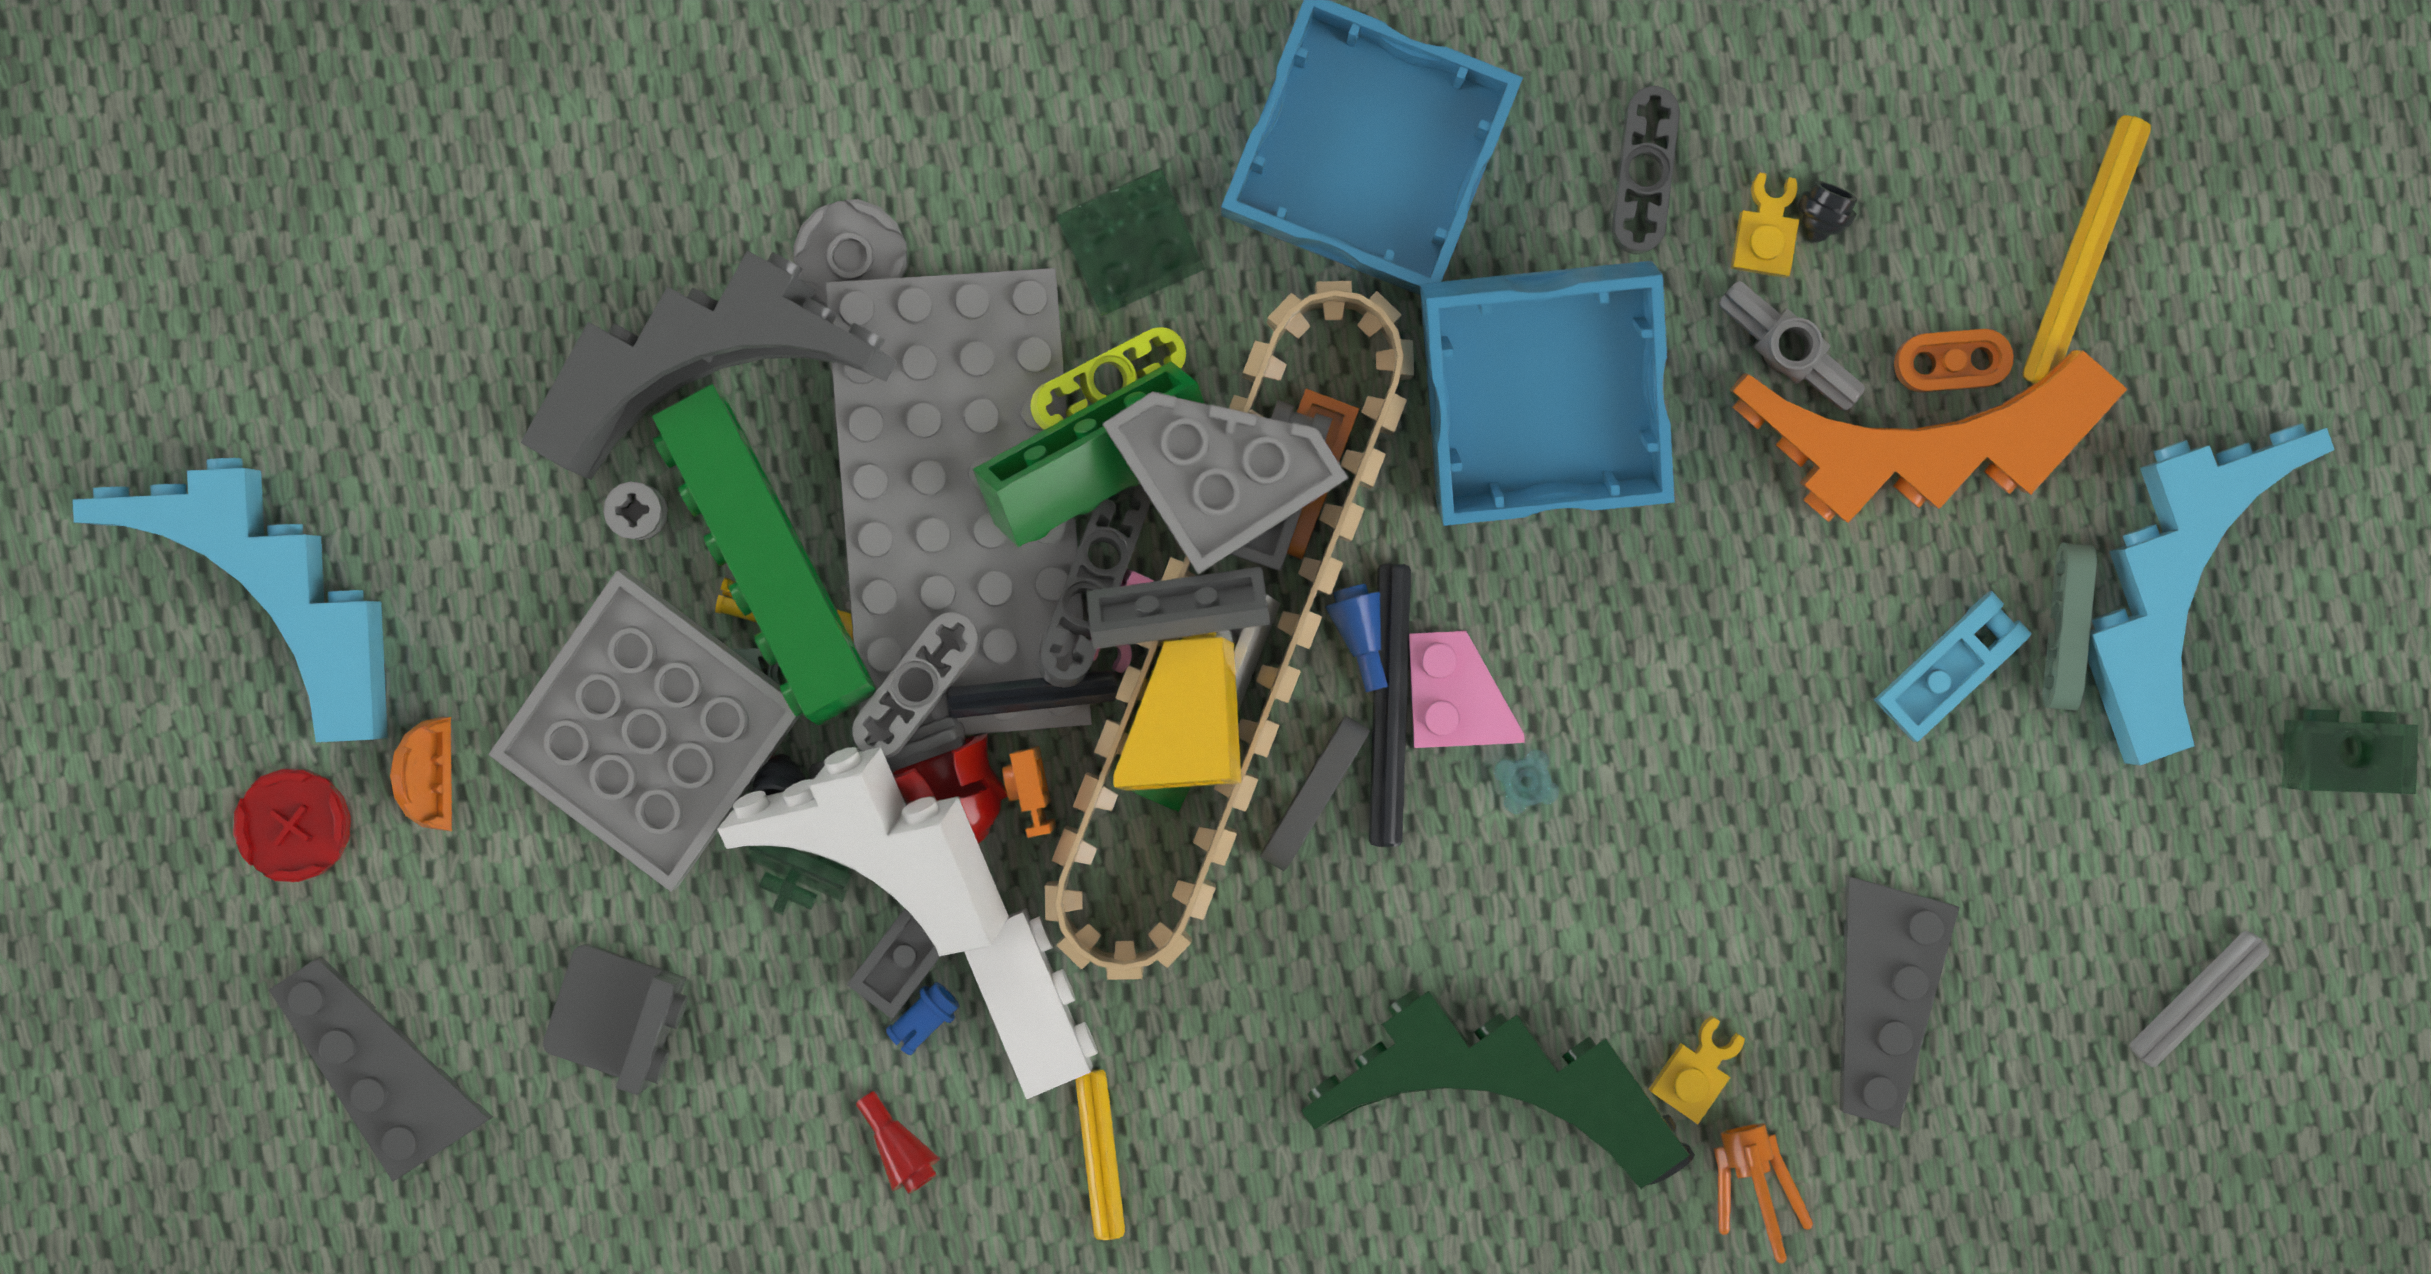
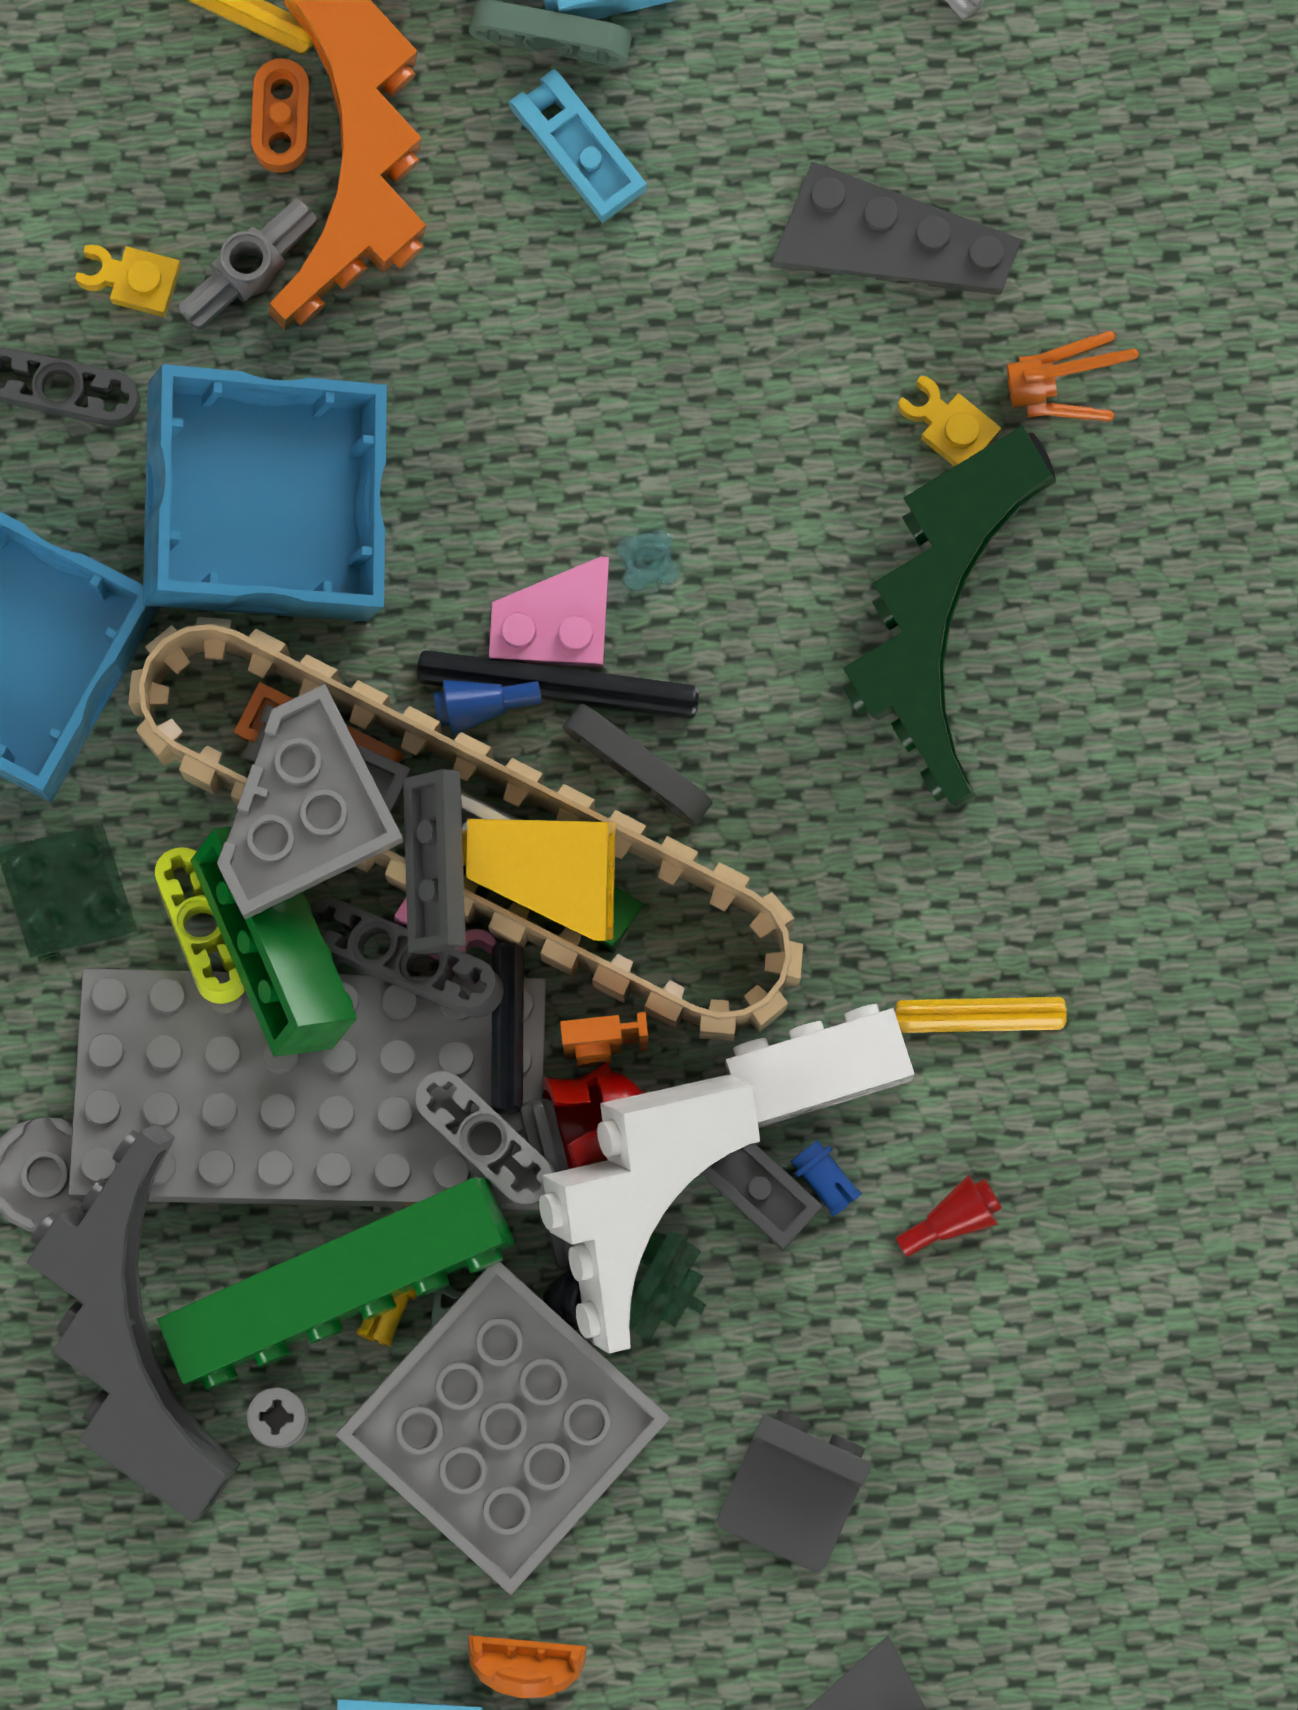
camera: 85 degrees left, 10 degrees down
(1826, 210) = (120, 219): black plate -> none

